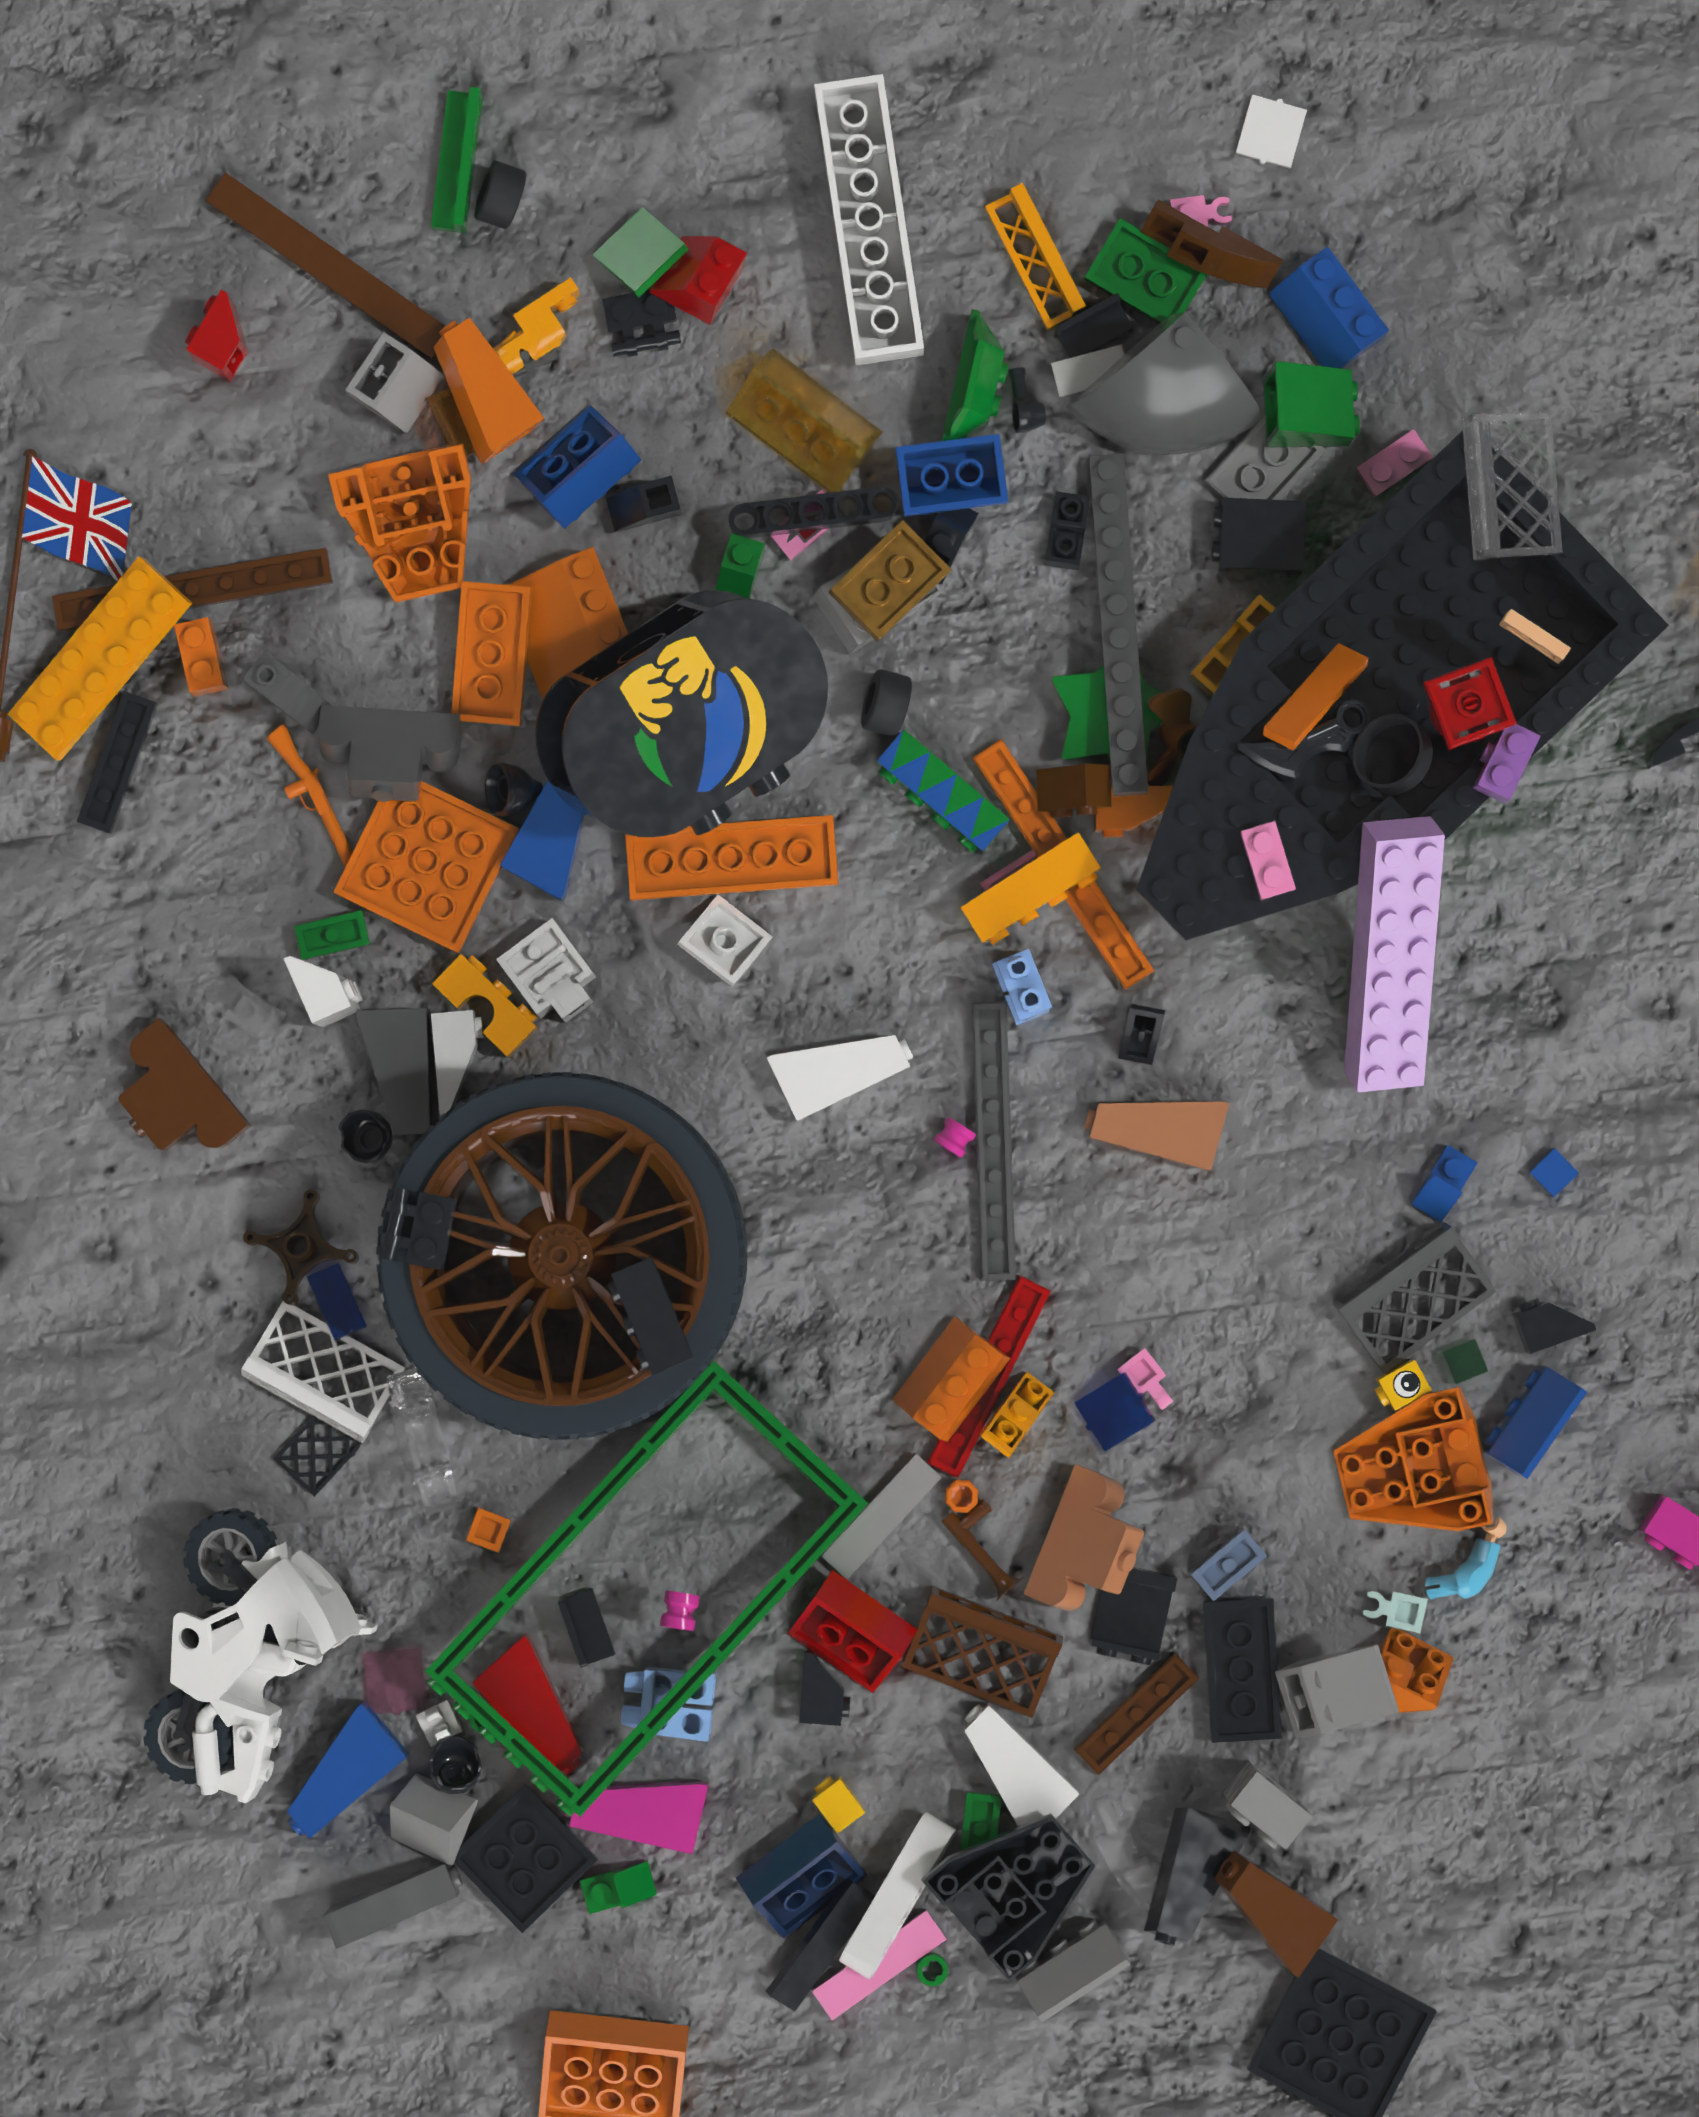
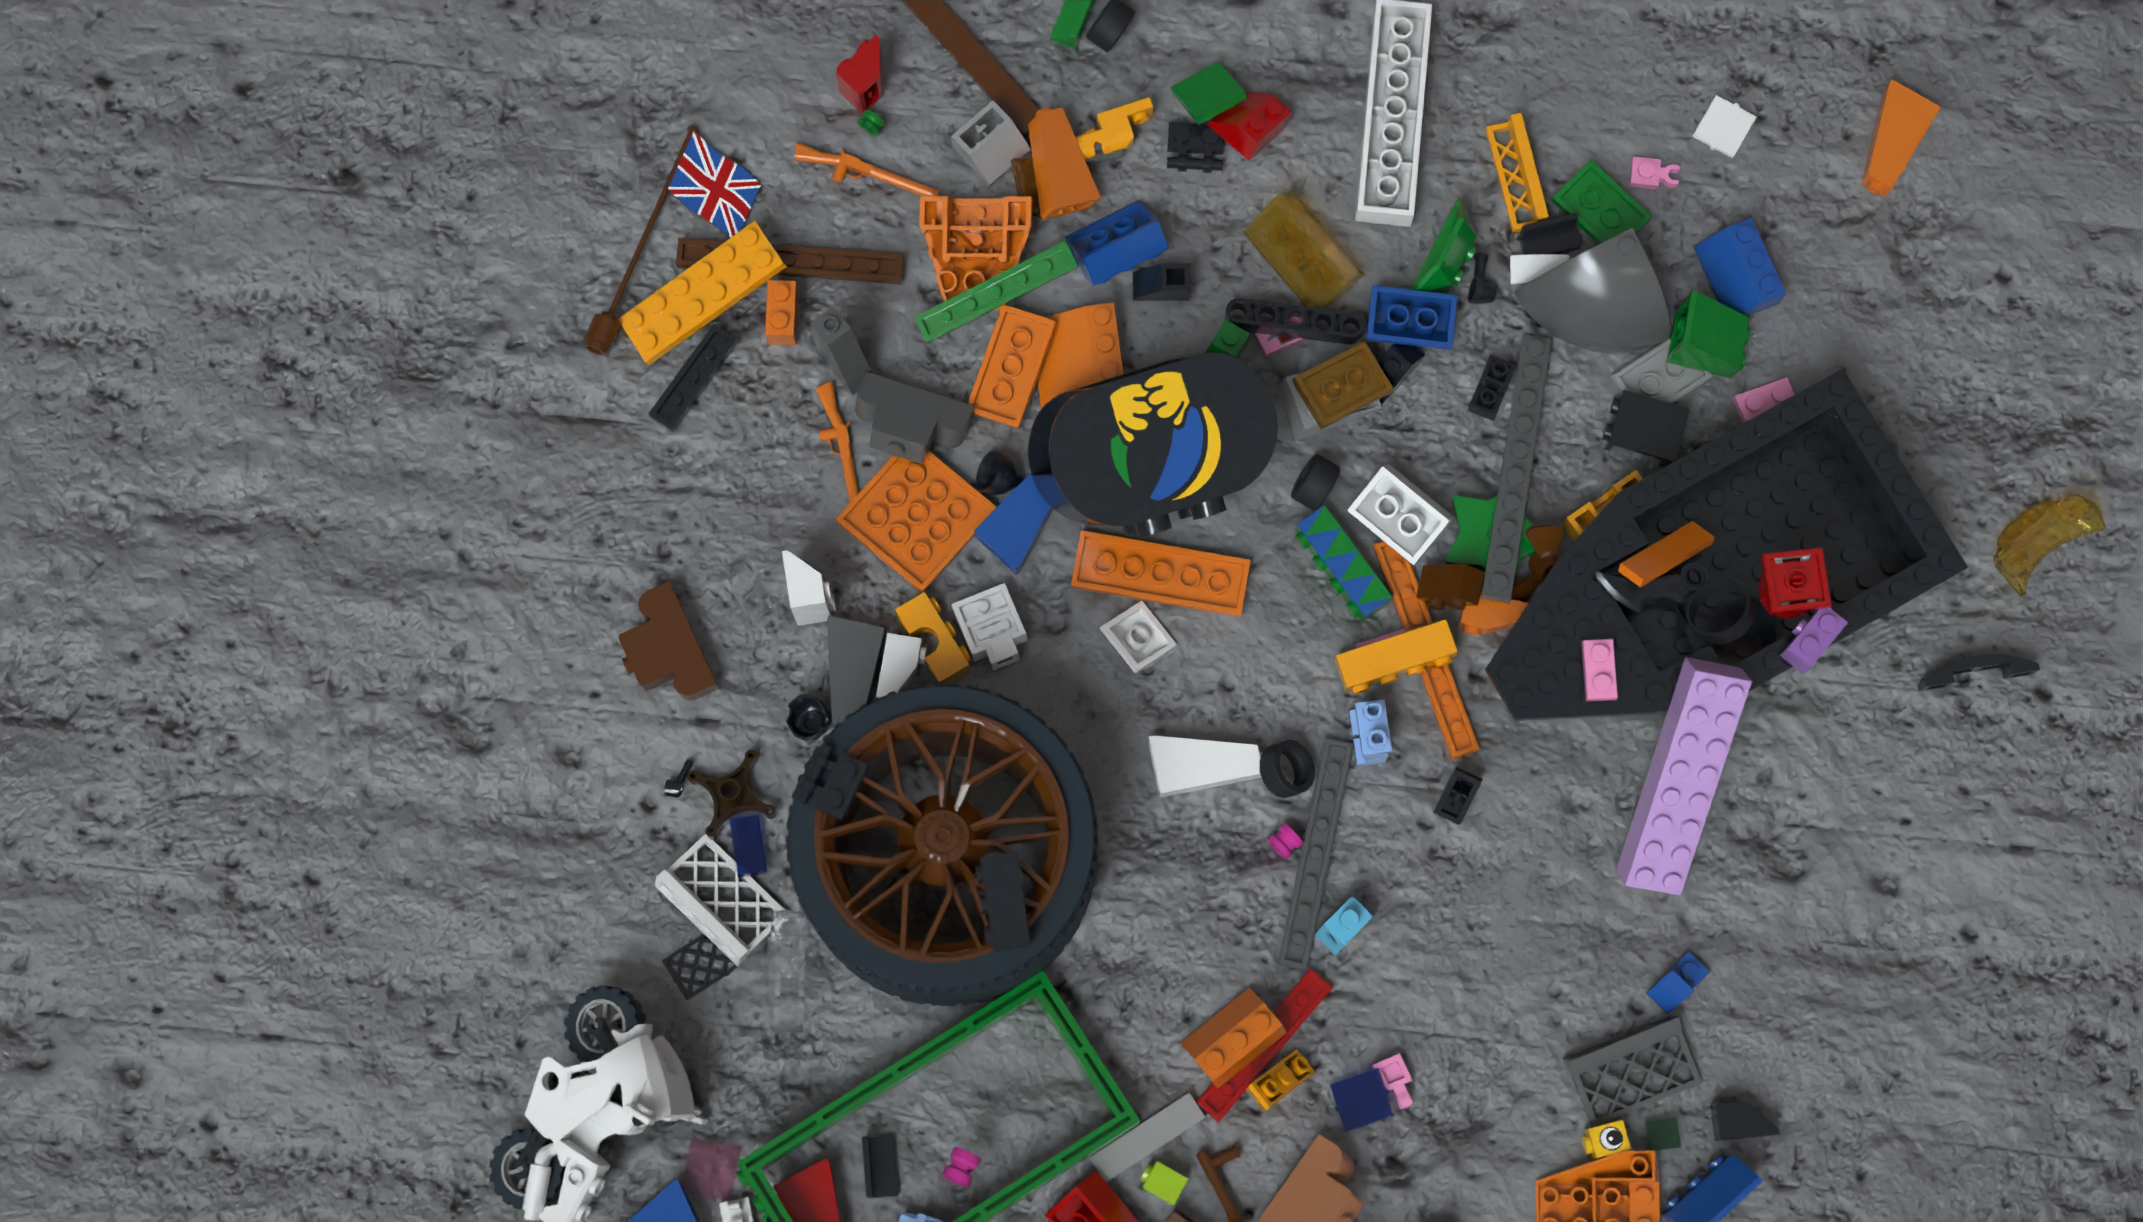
camera: 15 degrees right, 10 degrees down
(224, 448) = (845, 161): none -> orange piece
(233, 1256) = (675, 788): none -> black hand
(243, 391) = (871, 122): none -> green bush
(332, 935) = (827, 553): green plate -> none
(451, 569) = (996, 291): none -> green plate
(488, 1529) = (821, 1064): orange plate -> none
(912, 1563) = (1163, 1182): none -> lime brick
(954, 1045) = (1302, 765): none -> black tyre
(961, 1495) = (1218, 1137): orange tile -> none
(996, 714) = (1400, 514): none -> white slope
(1047, 1216) = (1344, 925): none -> medium azure torso
(1166, 1130) = (1459, 879): nougat slope -> none
(1210, 252) = (1656, 200): reddish brown slope -> none
(1479, 94) = (1897, 132): none -> orange slope
(1482, 481) = (1840, 422): clear fence -> none
(1534, 636) = (1858, 545): light nougat tile -> none
(1553, 1172) = (1771, 997): blue tile -> none

